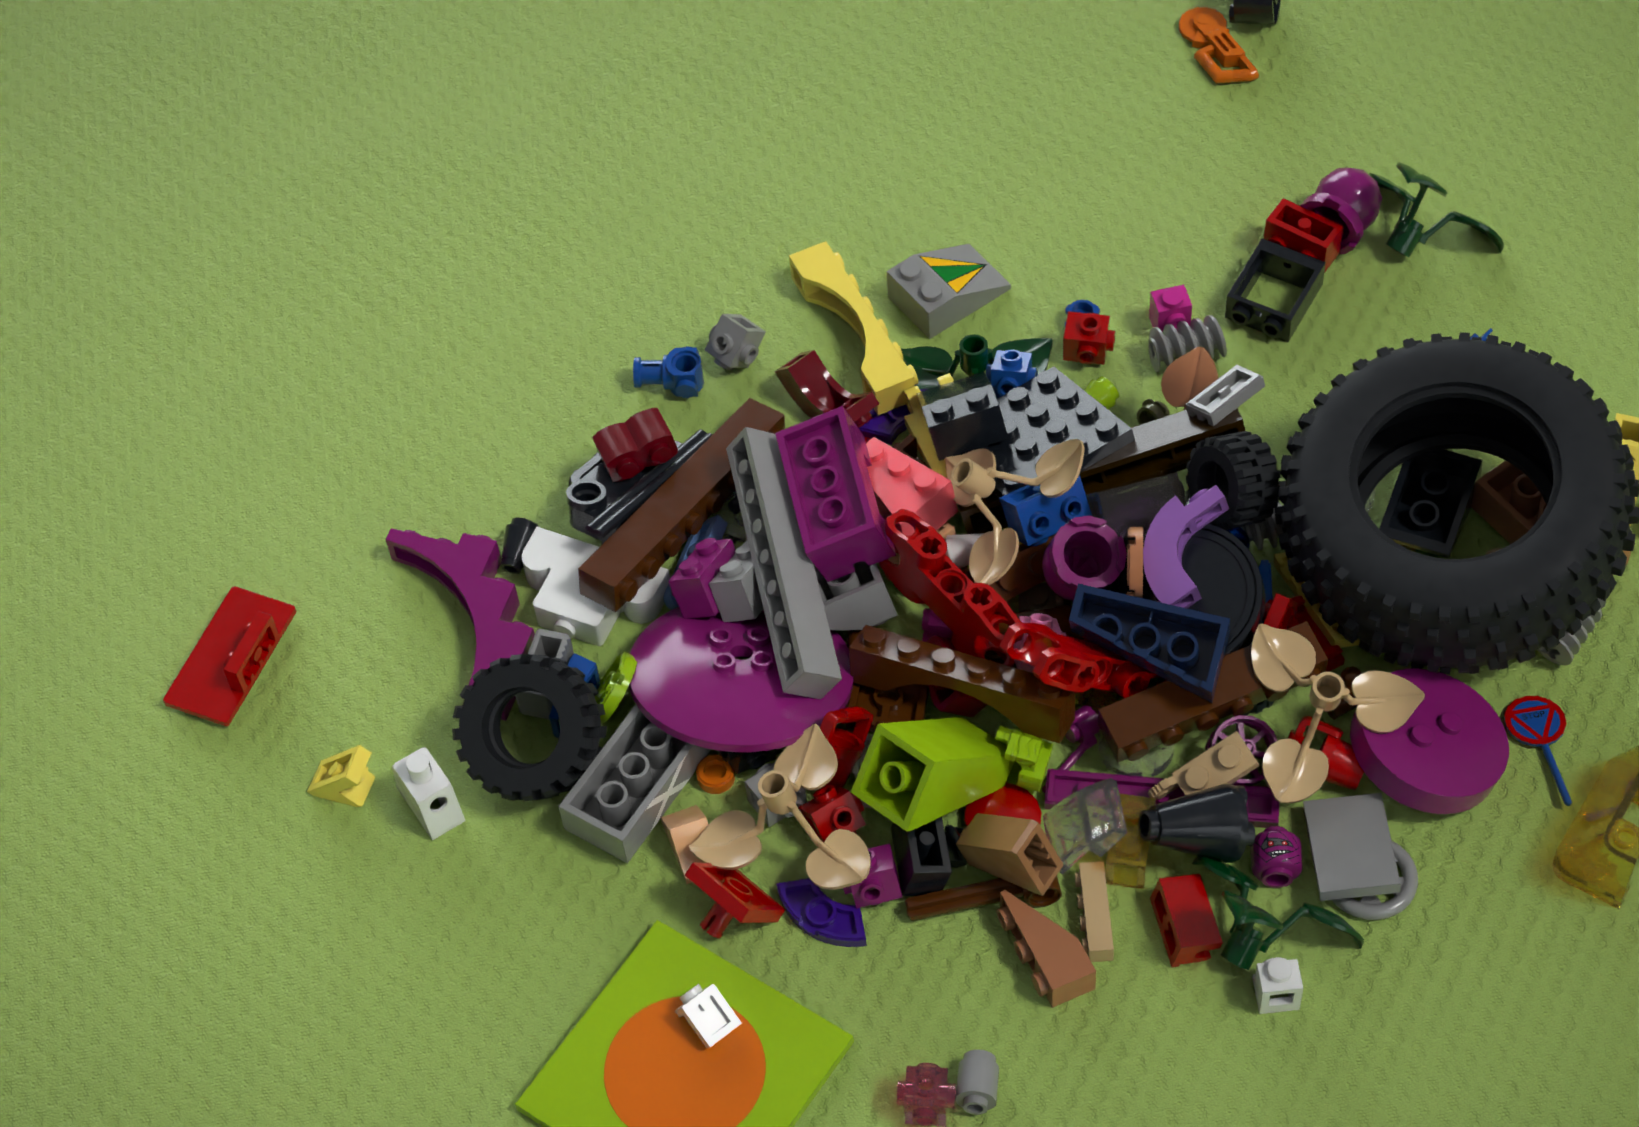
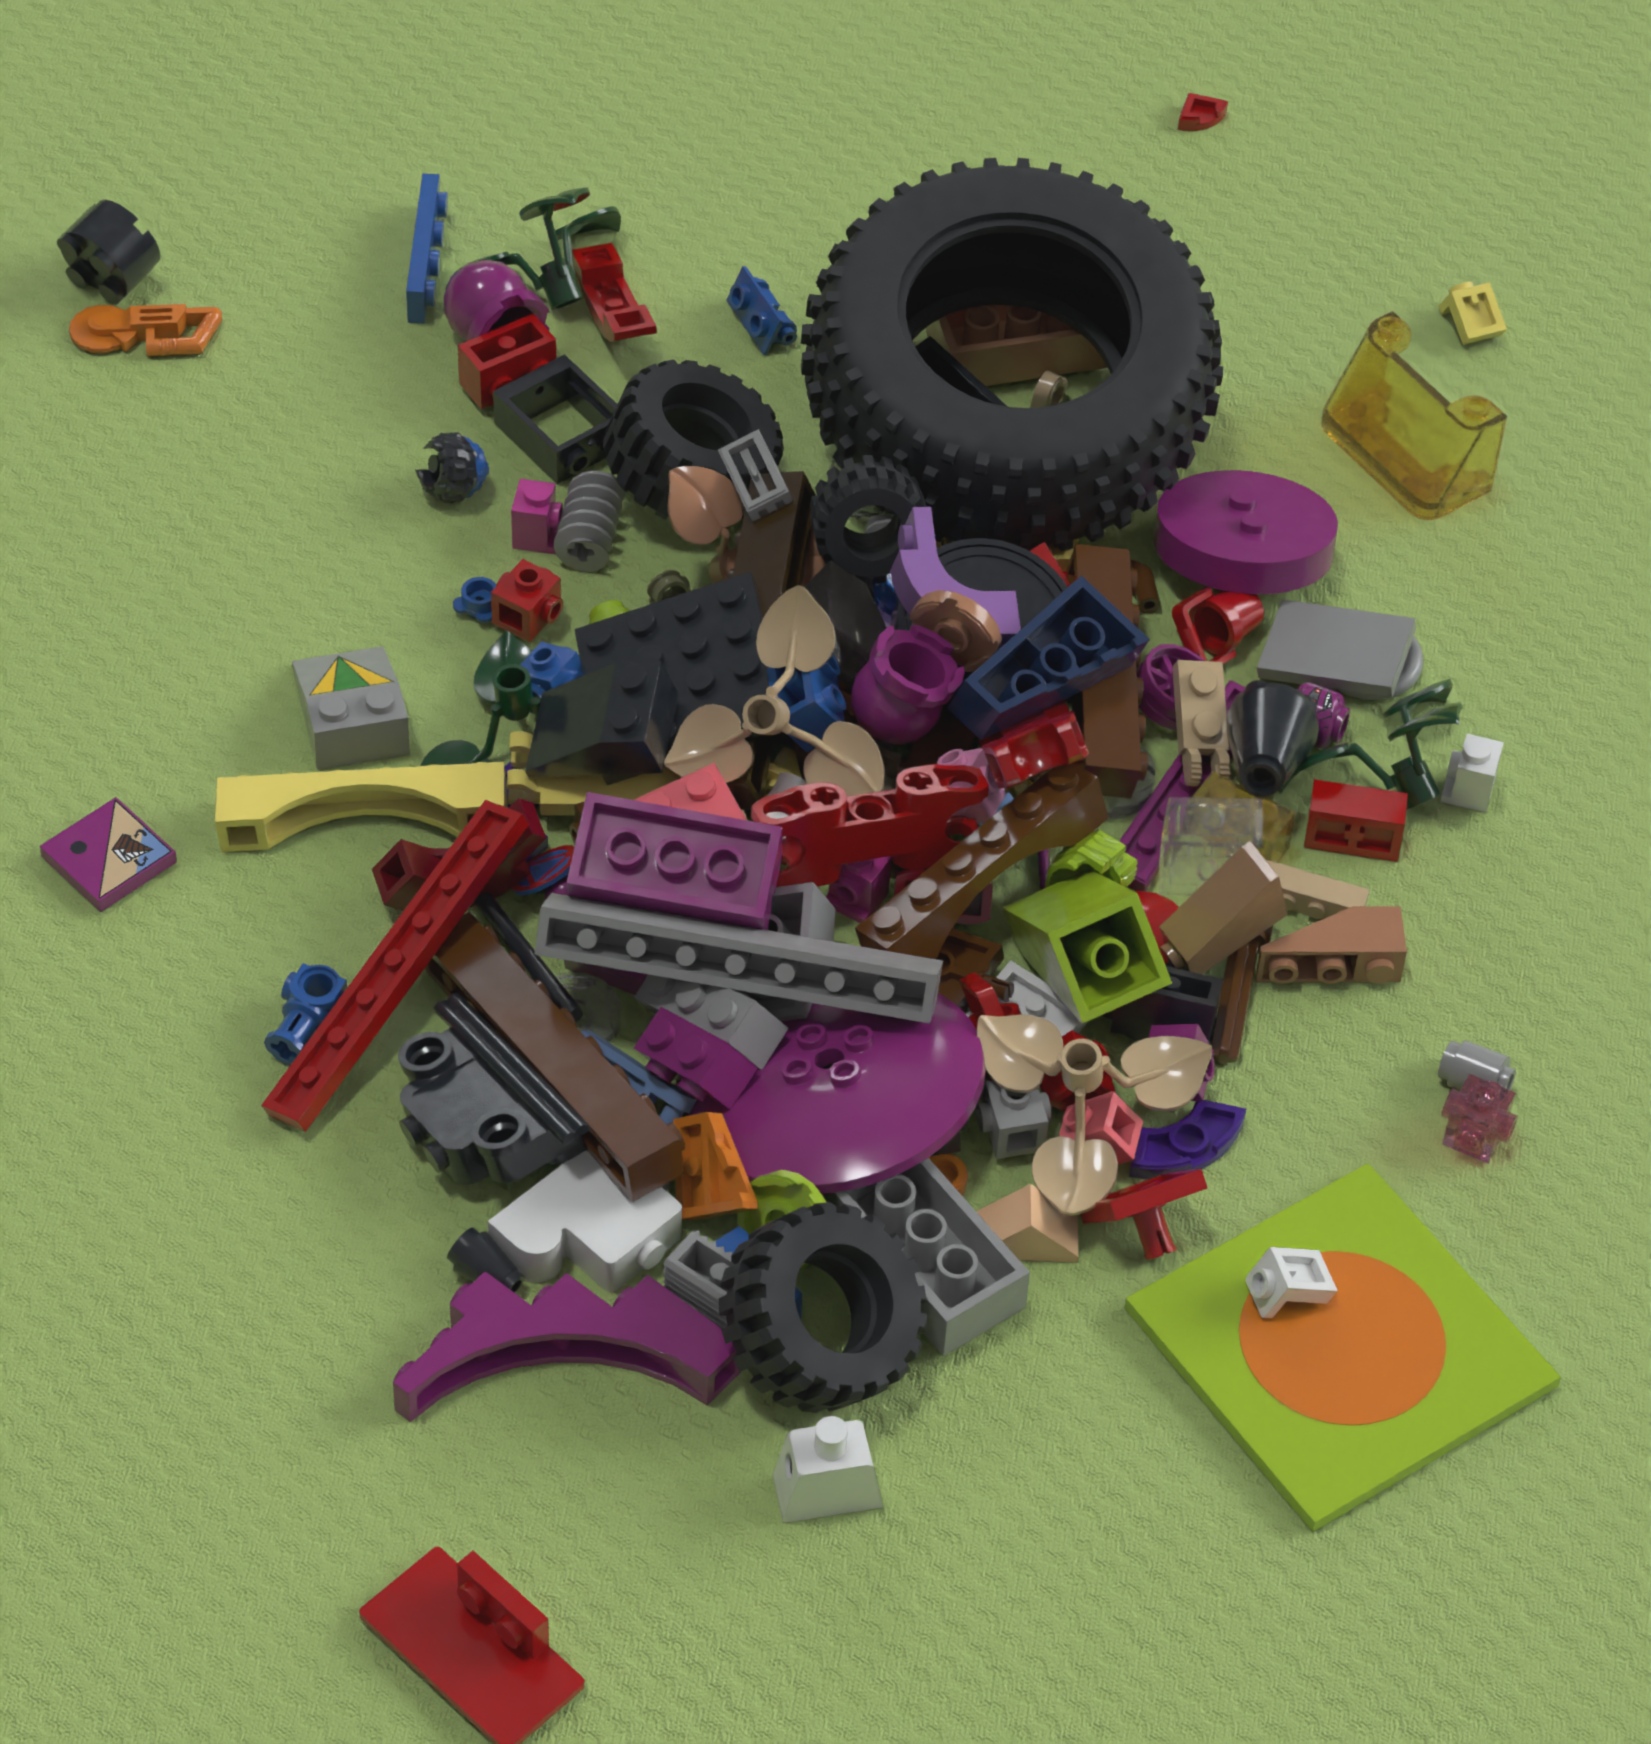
camera: 75 degrees left, 5 degrees down
(344, 777) = (749, 1563): light yellow slope -> none
(627, 633) = (713, 1170): none -> orange wing
(635, 444) = (451, 1057): dark red brick -> none
(718, 392) = (394, 966): none -> red plate
(734, 341) = (296, 920): light grey brick -> none
(753, 223) = (108, 854): none -> tile
(788, 859) = (1108, 1120): none -> coral brick
(1184, 249) = (455, 470): none -> black piece
(1286, 657) = (1209, 532): tan plant -> none
(1299, 329) = (670, 410): none -> black tyre
(1395, 147) = (424, 257): none -> blue plate
(1418, 275) = (608, 294): none -> red slope
(1538, 724) = (1258, 454): piece -> none

